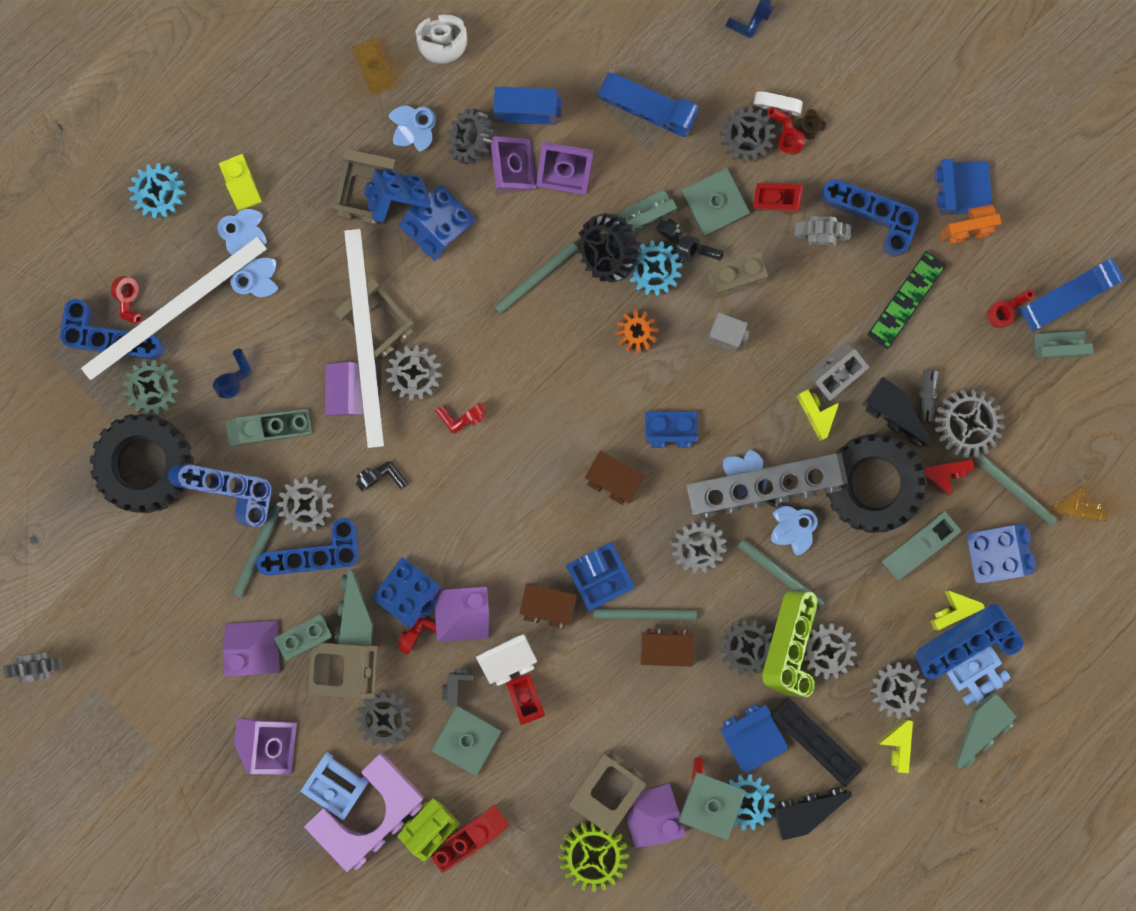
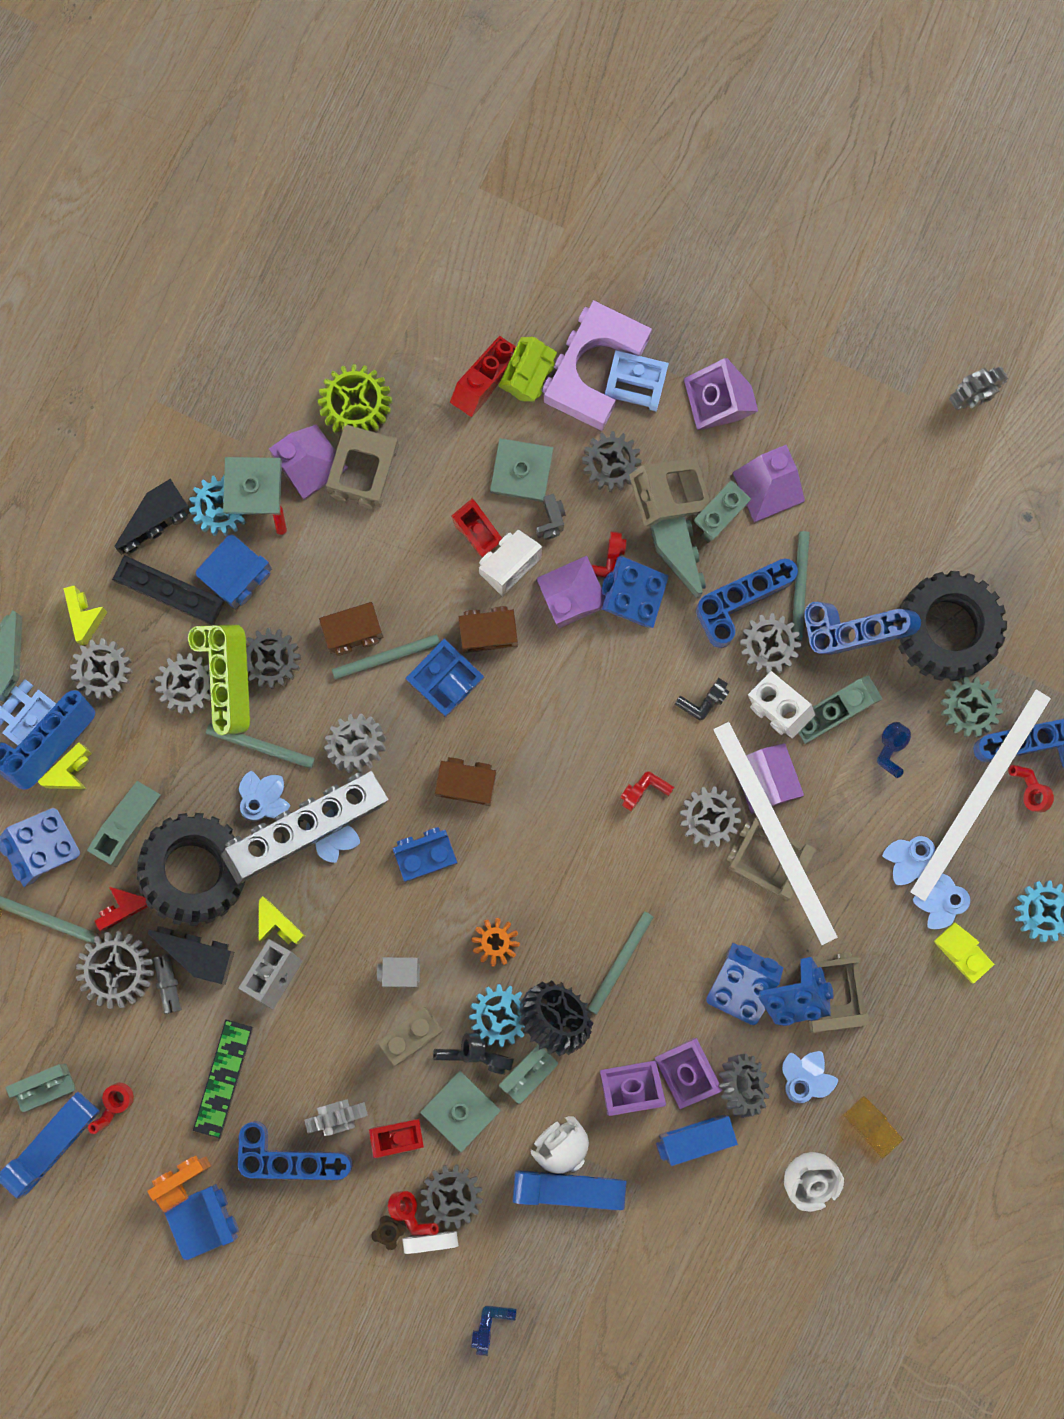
camera: 165 degrees right, 5 degrees down
(313, 448) = (785, 701): none -> white brick
(641, 141) = (562, 1147): none -> white cylinder

